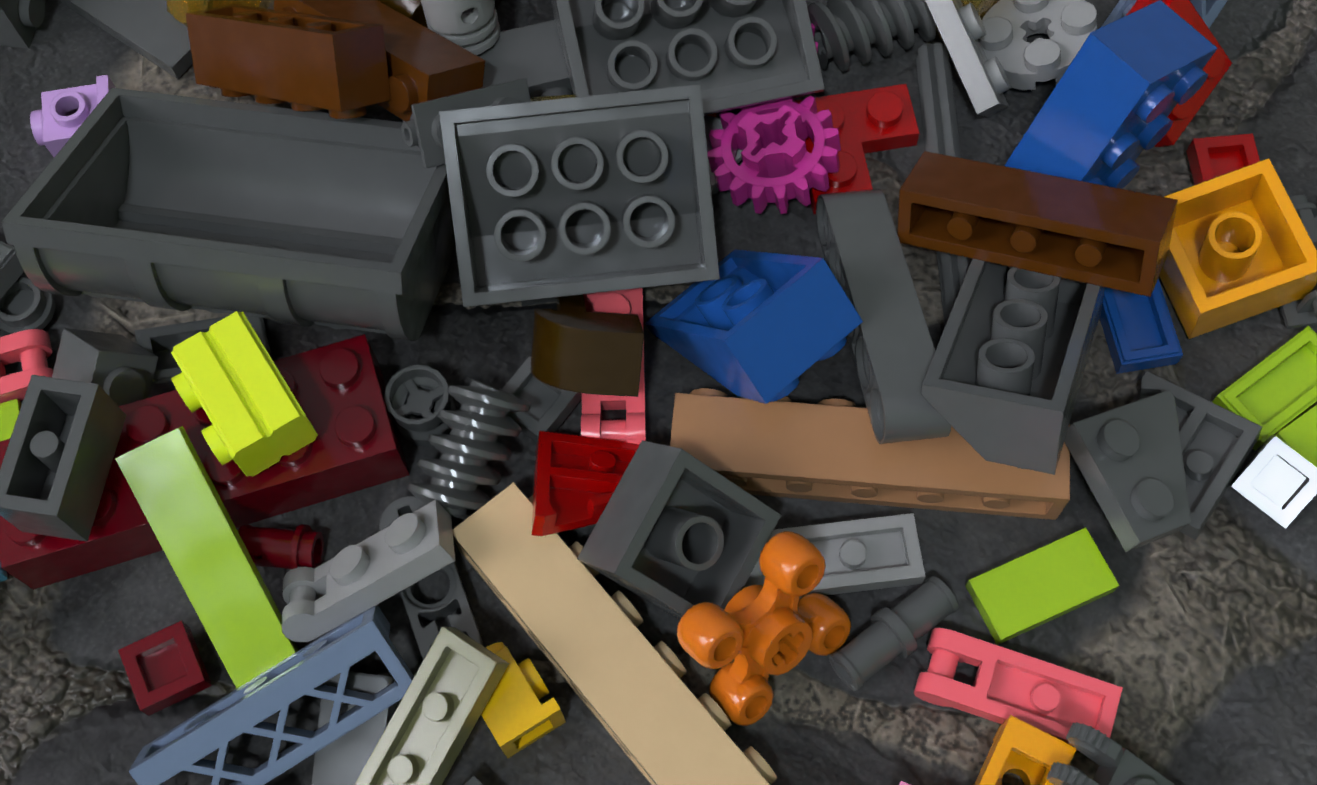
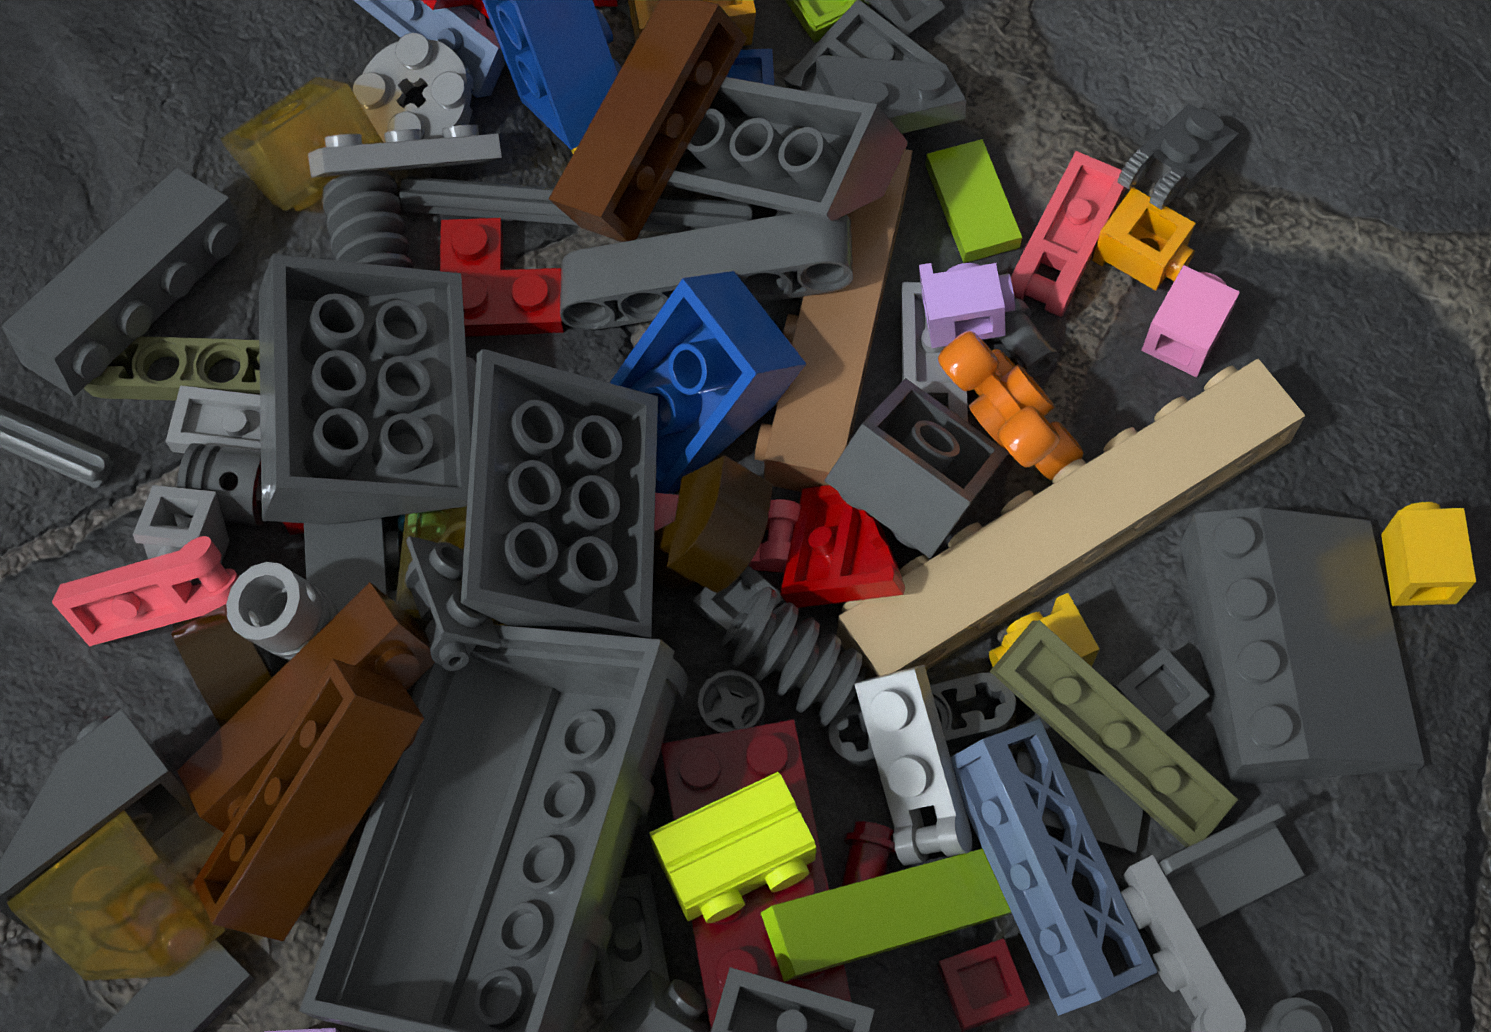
camera: 85 degrees left, 0 degrees up
(774, 153) = (521, 322): dark pink gear -> none
(883, 567) = (965, 300): none -> lavender brick

